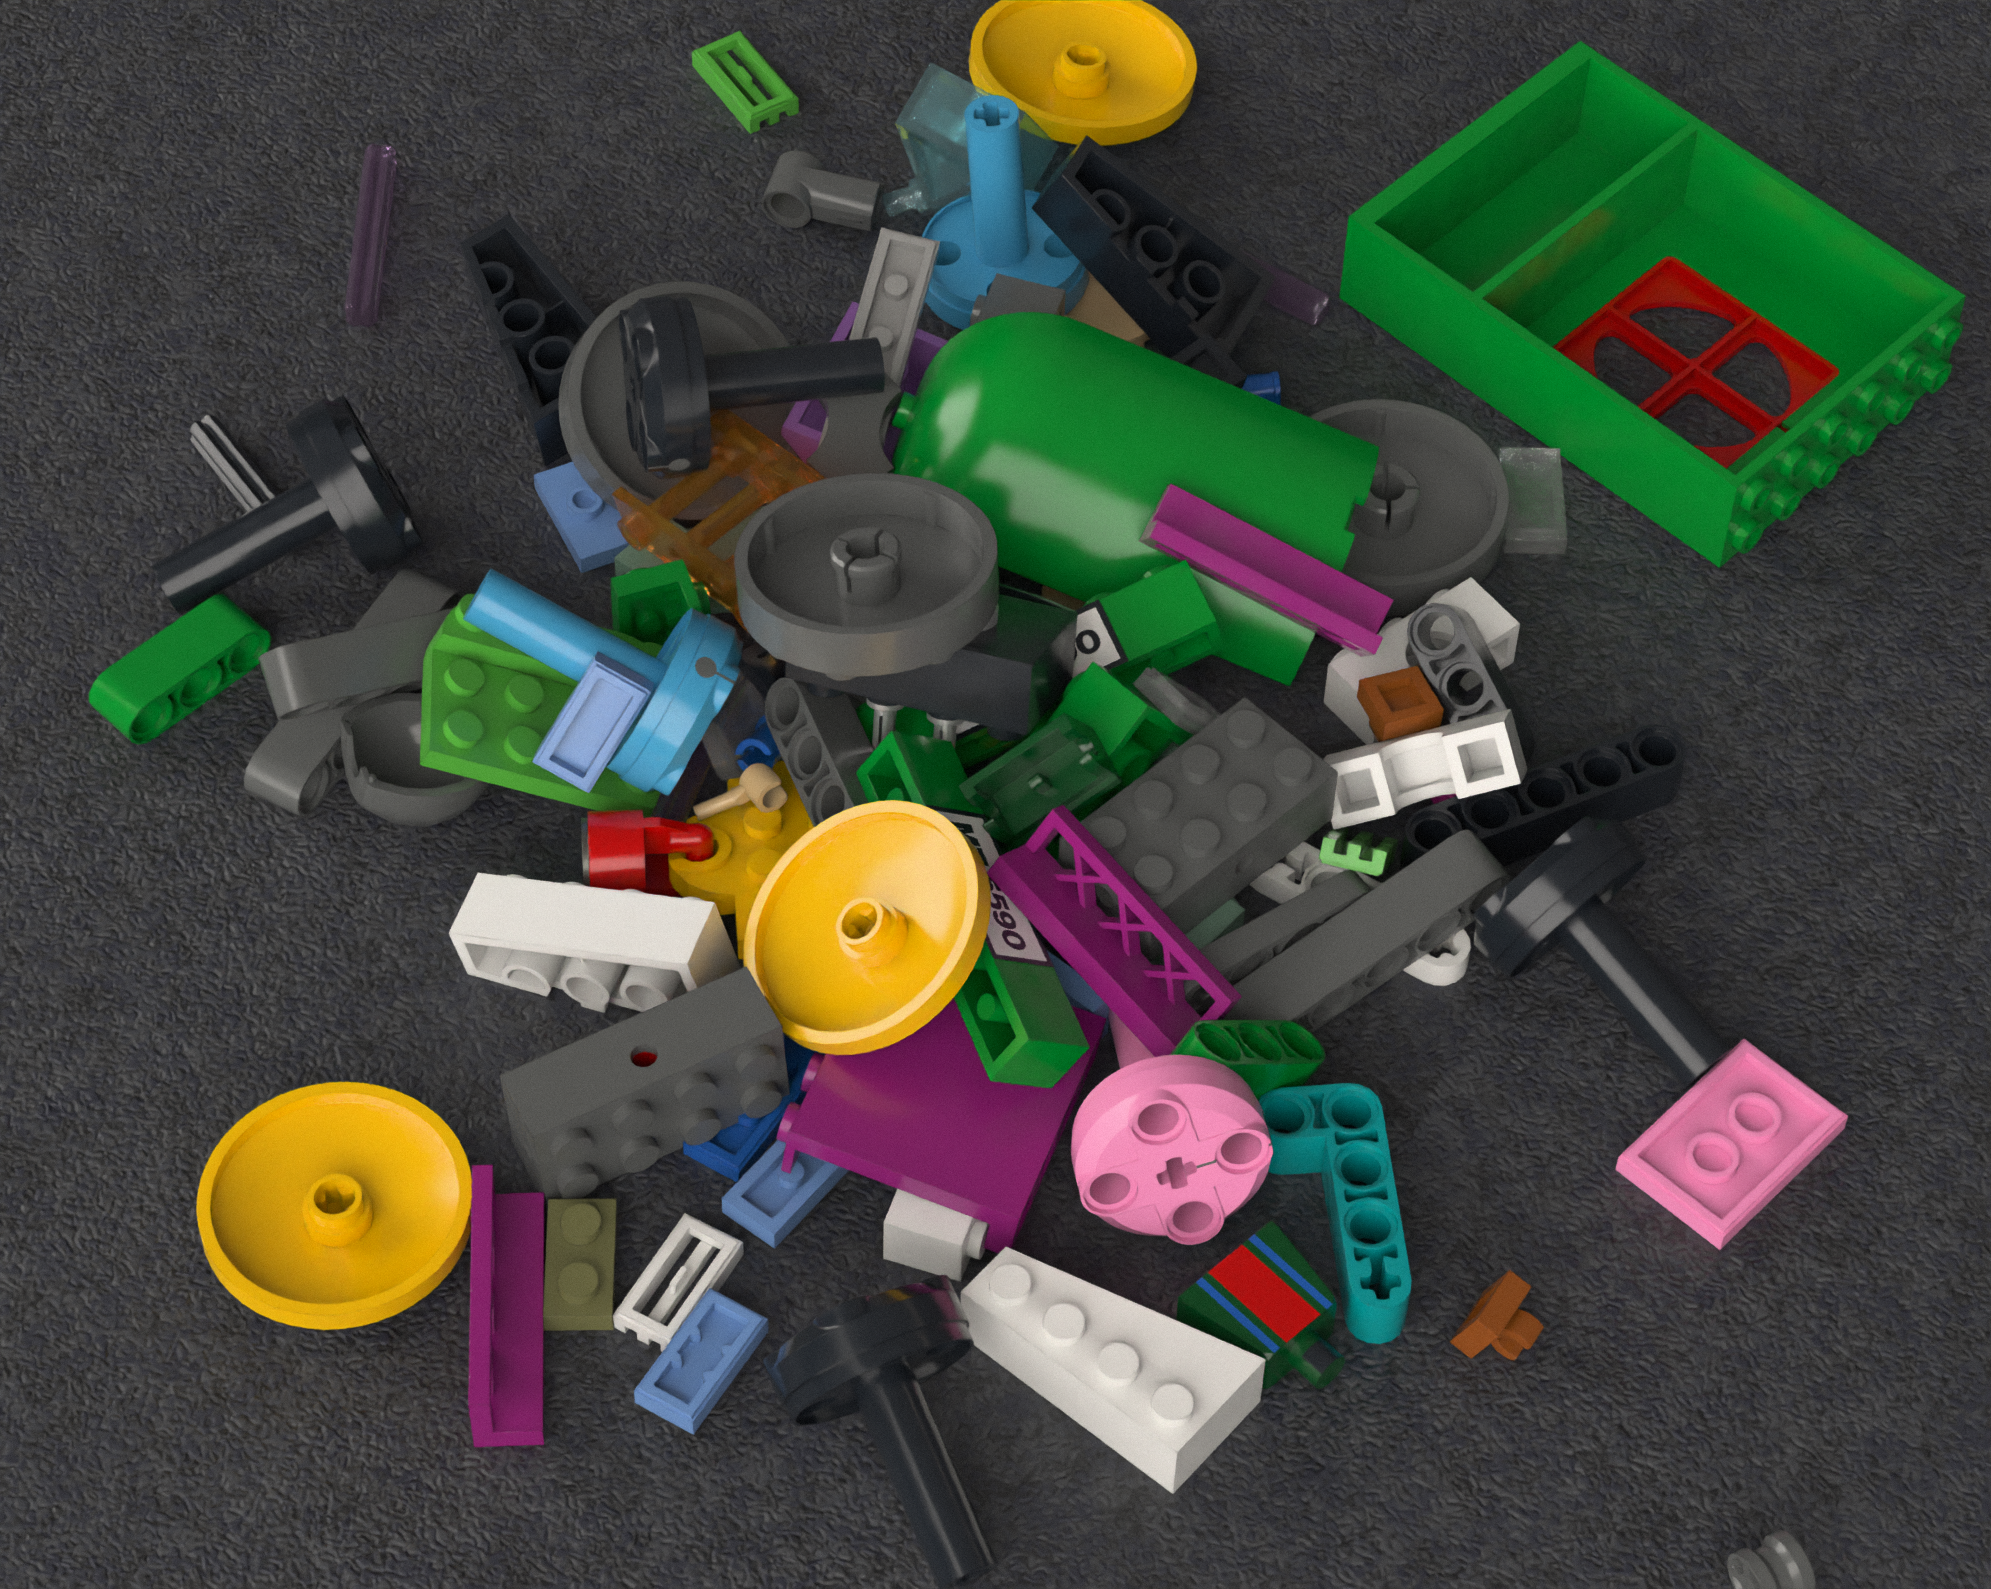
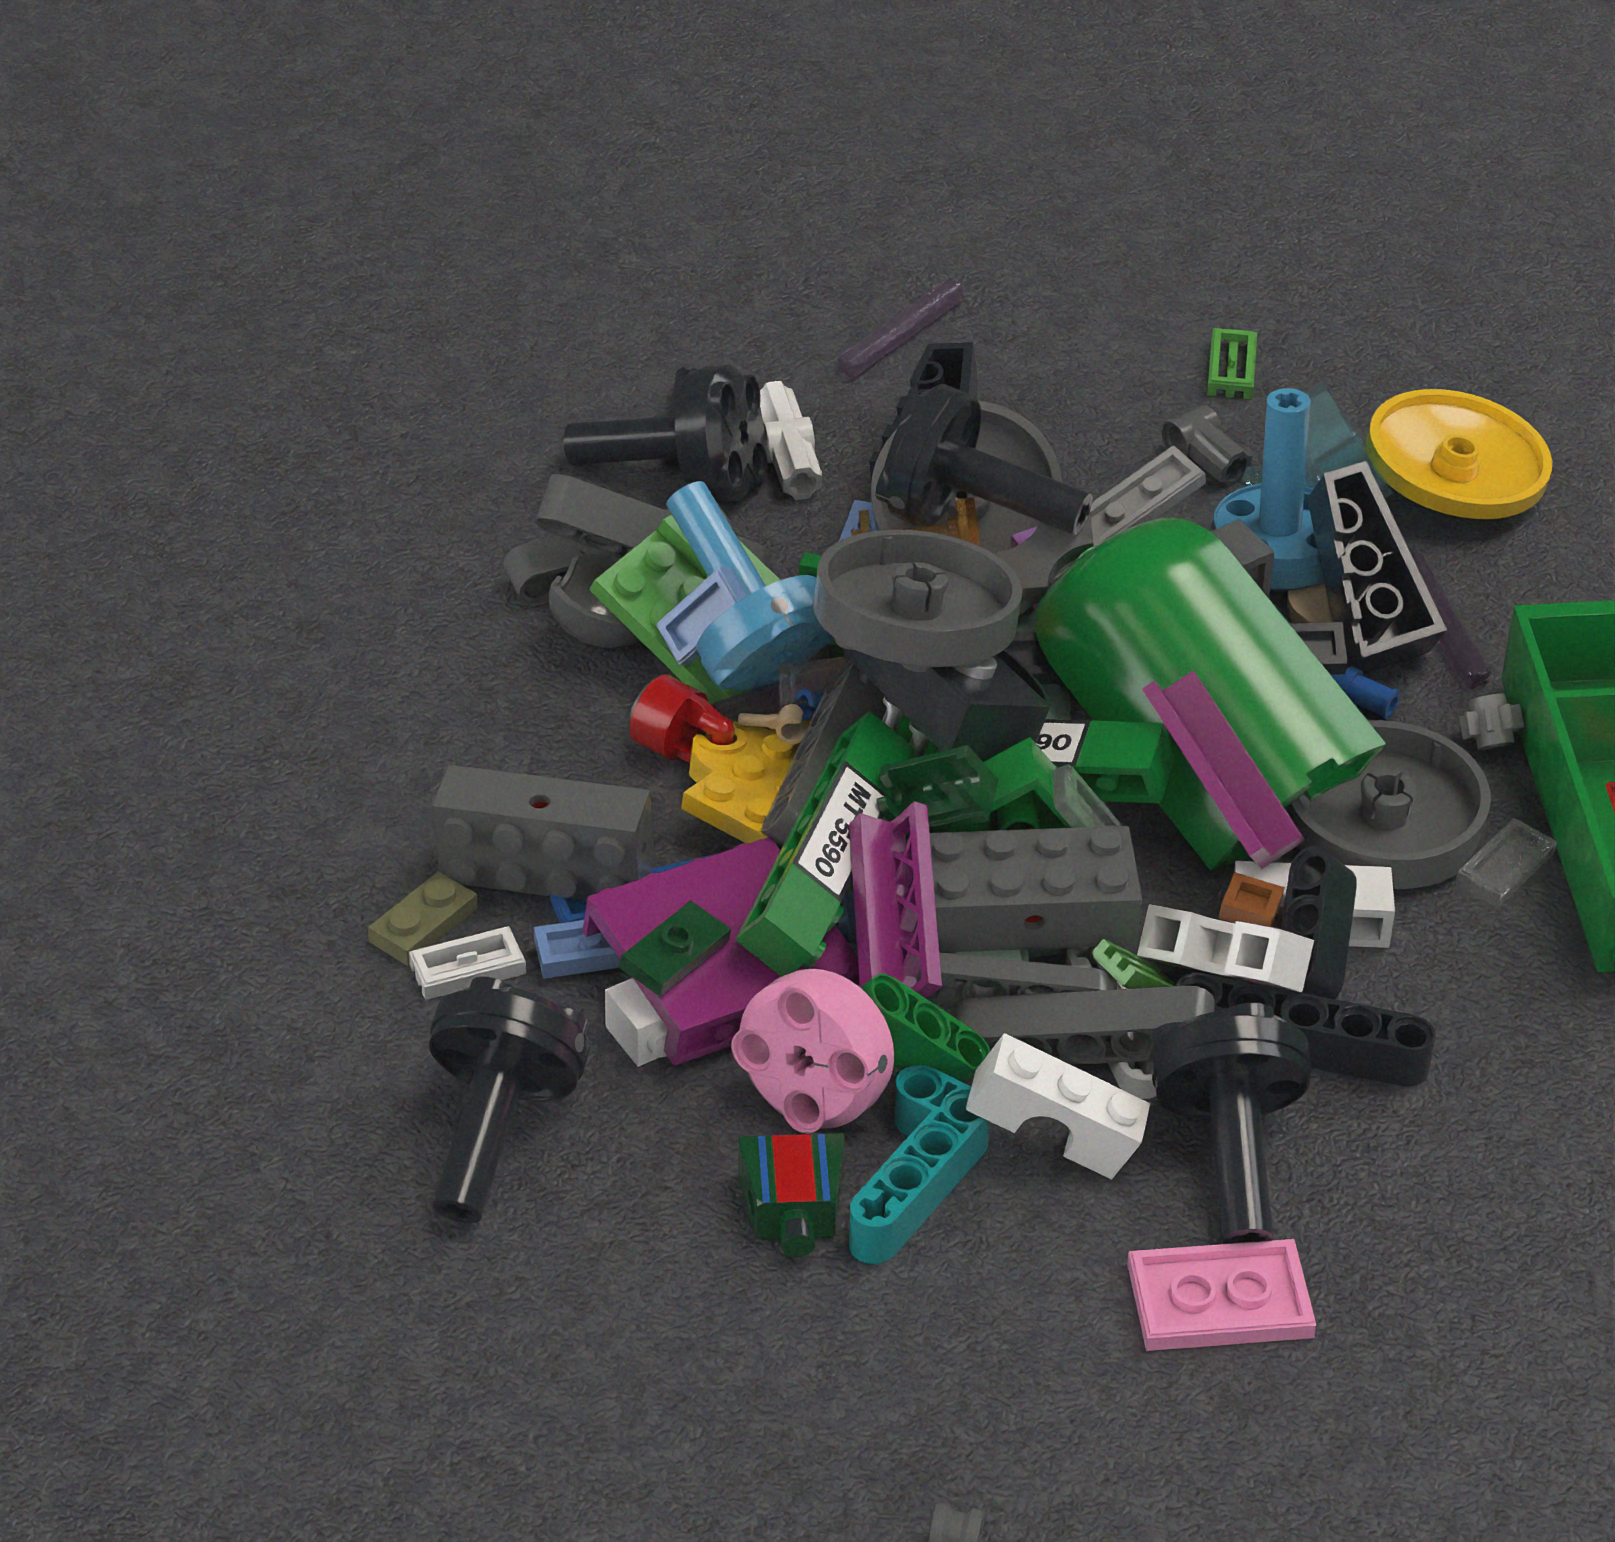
camera: 40 degrees right, 10 degrees down
(179, 669) = (515, 485): green beam -> none
(335, 1205) = (309, 796): yellow dish -> none
(409, 448) = (789, 441): none -> white piece
(506, 1315) = (327, 940): magenta fence -> none
(590, 941) = (604, 745): white wedge -> none
(701, 1361) = (411, 1007): medium blue plate -> none
(868, 926) = (743, 809): yellow dish -> none
(933, 1130) = (675, 948): none -> dark green plate
(1112, 1365) = (669, 1162): white wedge -> none
(1390, 353) = (1491, 721): none -> light grey gear
(1402, 1048) = (1028, 1083): none -> white arch
(1499, 1321) = (940, 1284): dark orange tile -> none

